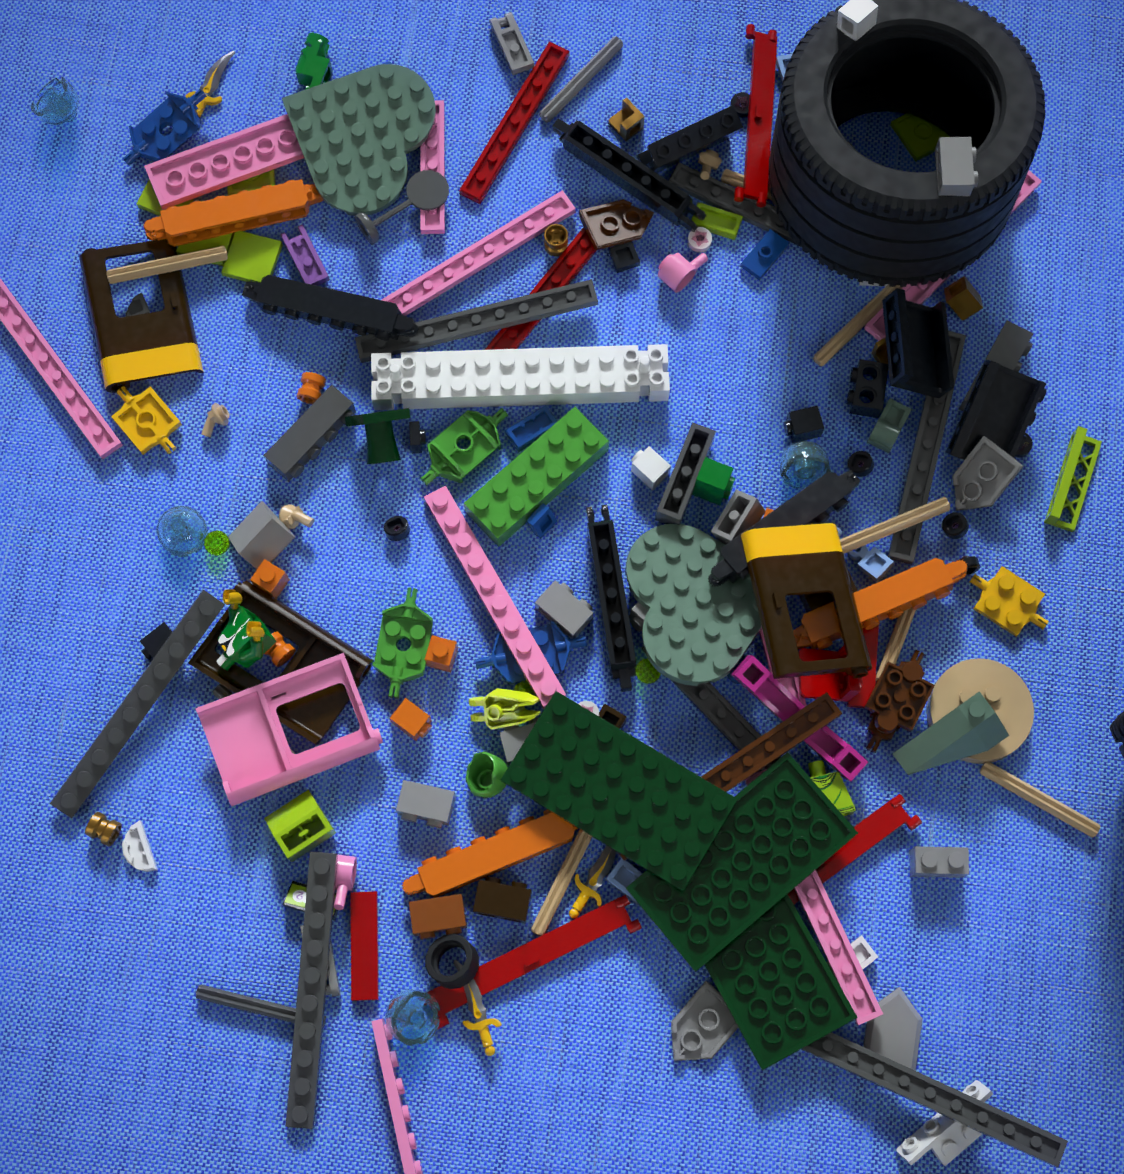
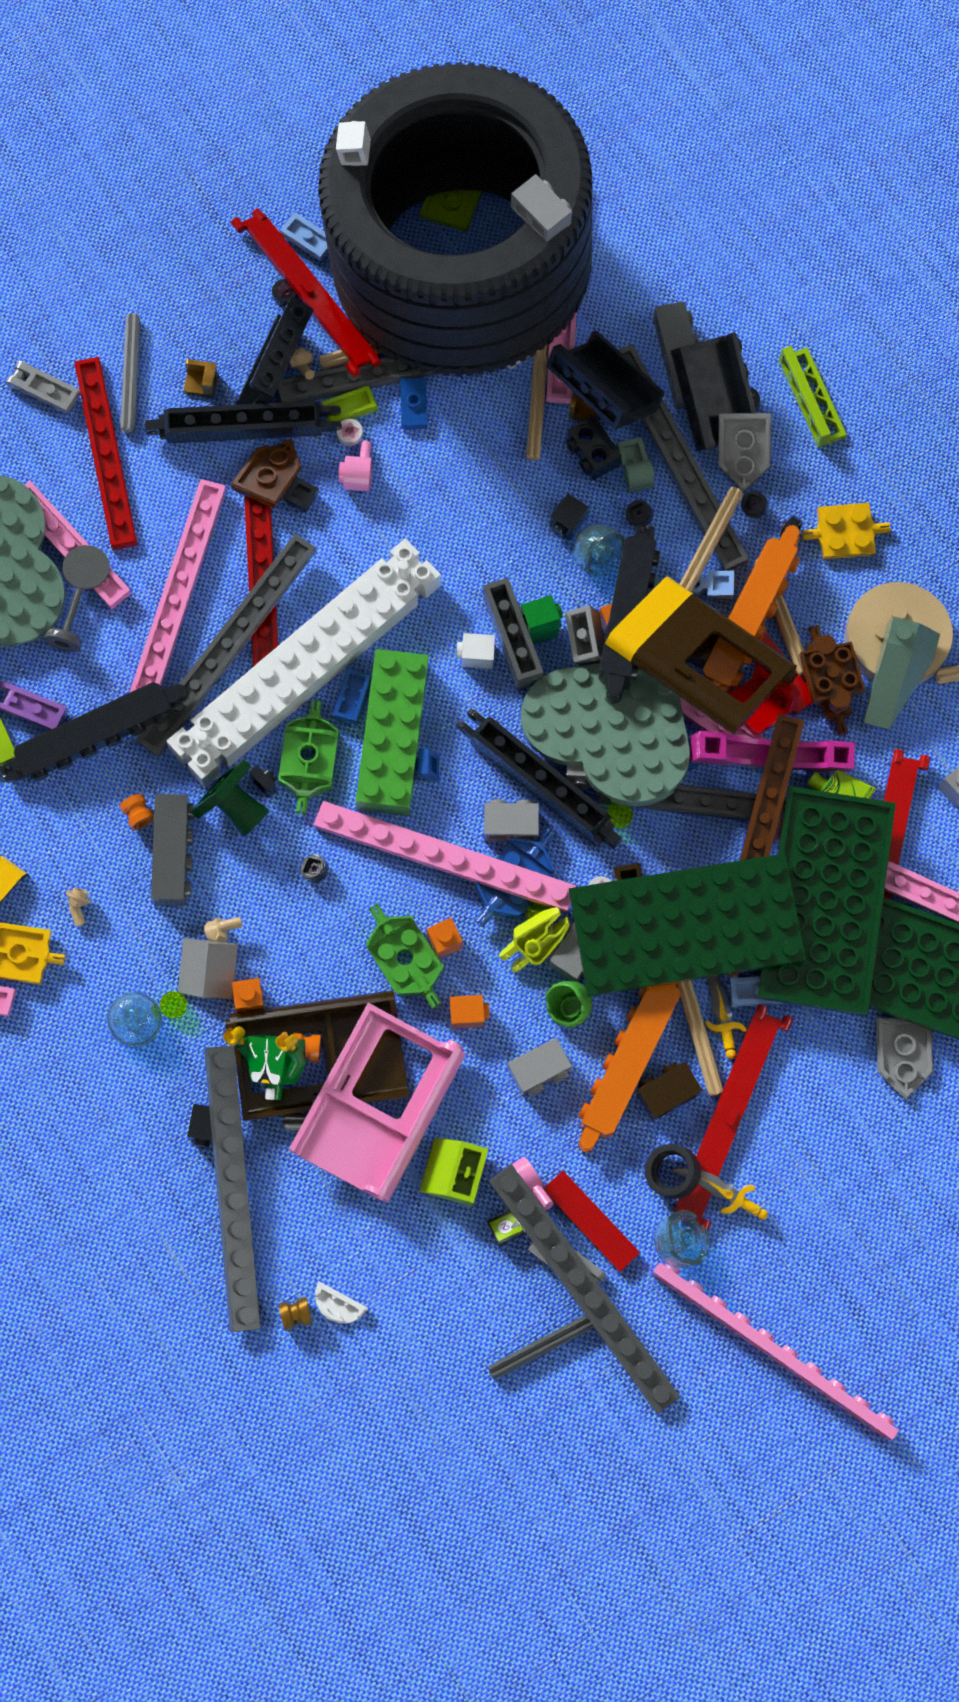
camera: 45 degrees left, 0 degrees up
(437, 916) = (628, 1146): dark orange brick -> none
(555, 234) = (230, 519): pearl gold wheel -> none
(963, 298) = (603, 315): pearl gold panel -> none

